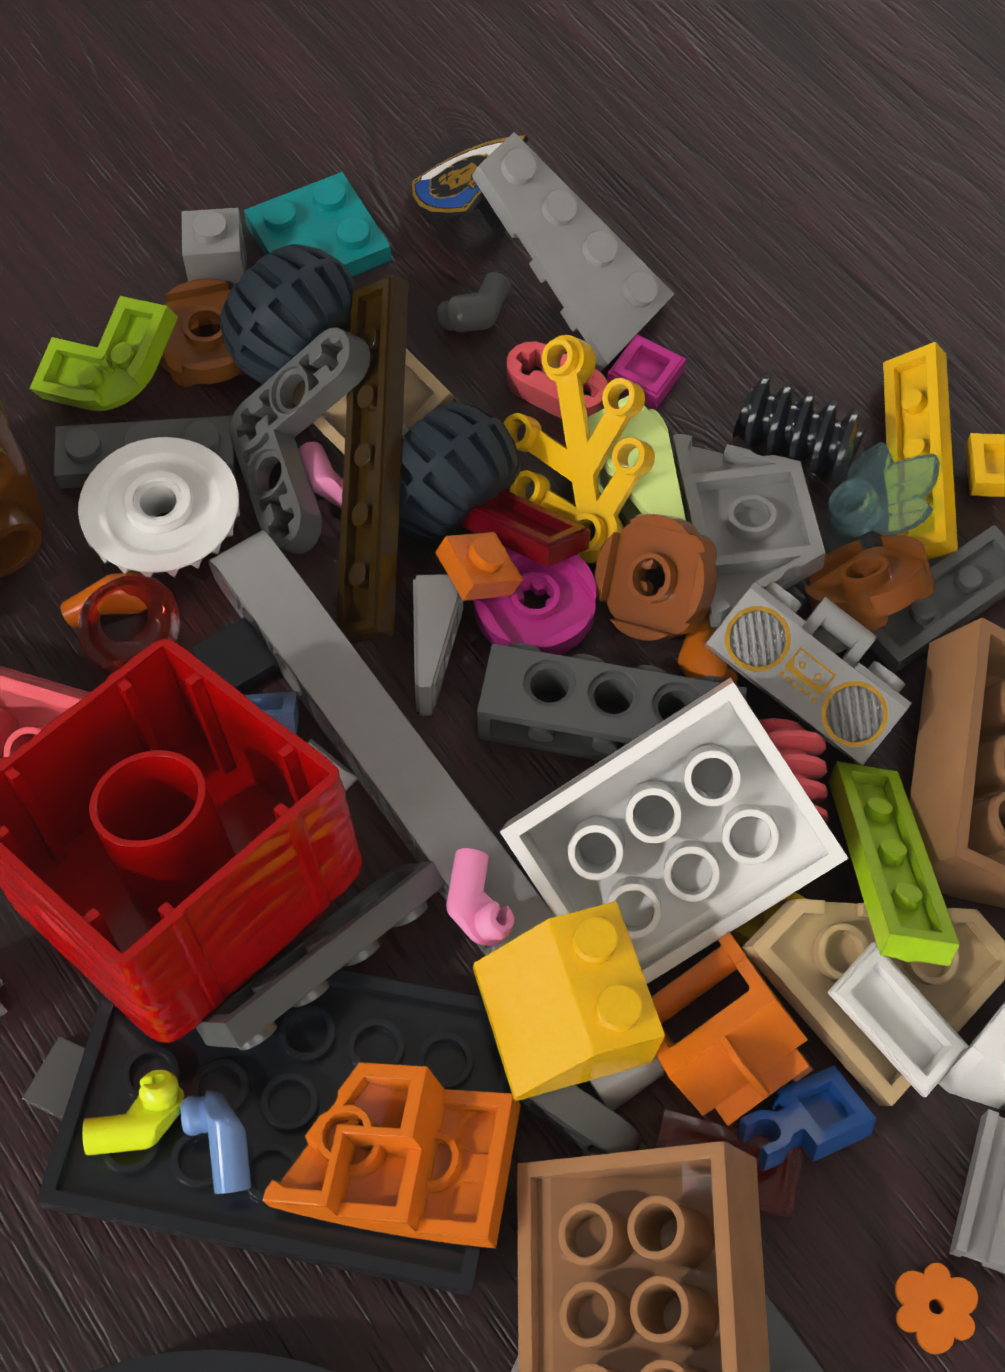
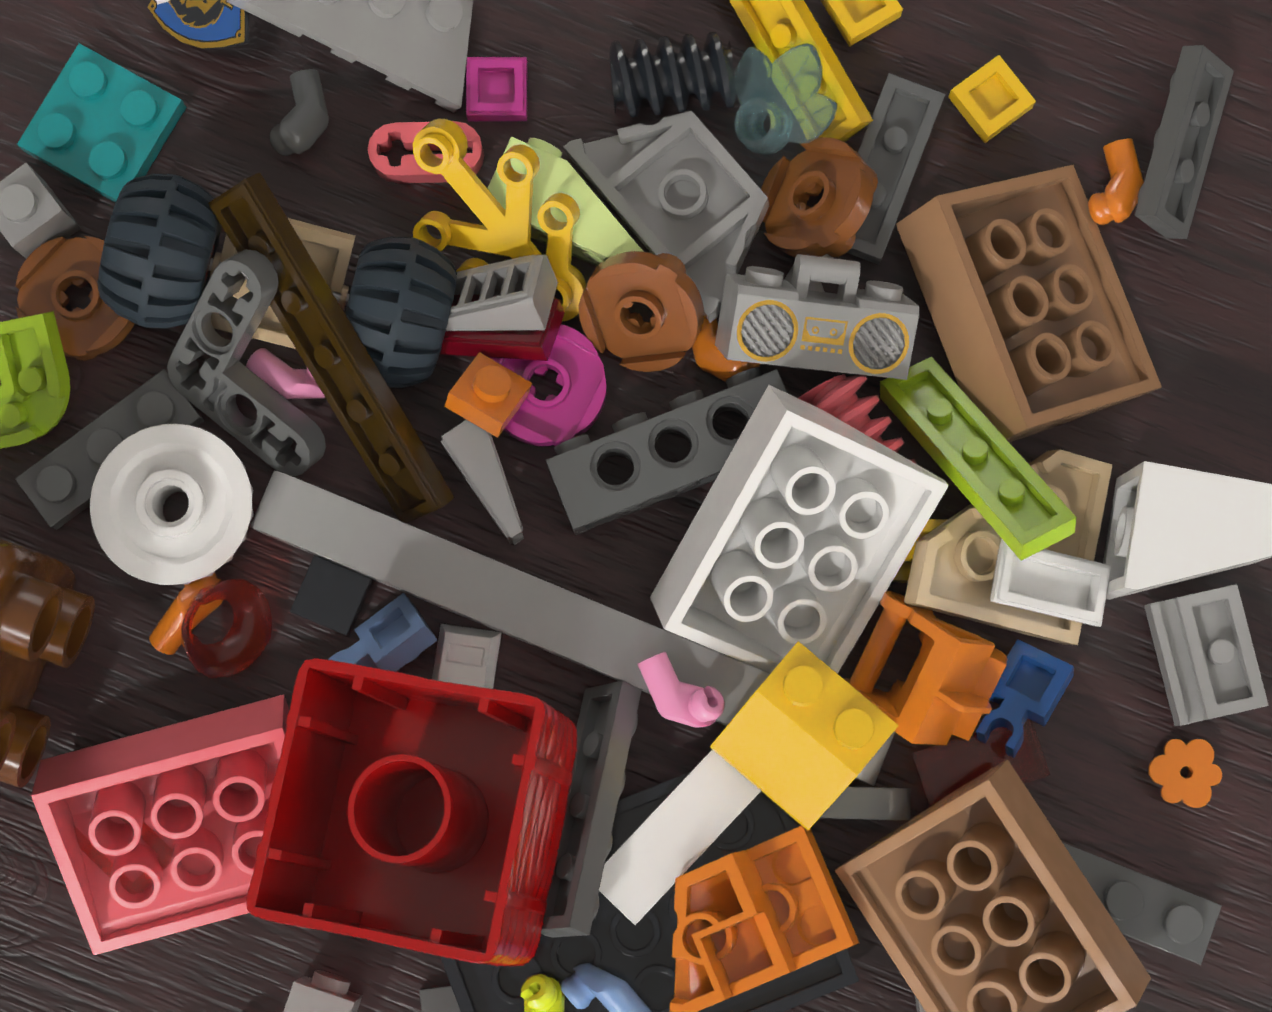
camera: 30 degrees left, 20 degrees up
(386, 1029) = (675, 836): none -> white tile
(547, 500) = (524, 300): none -> light grey slope

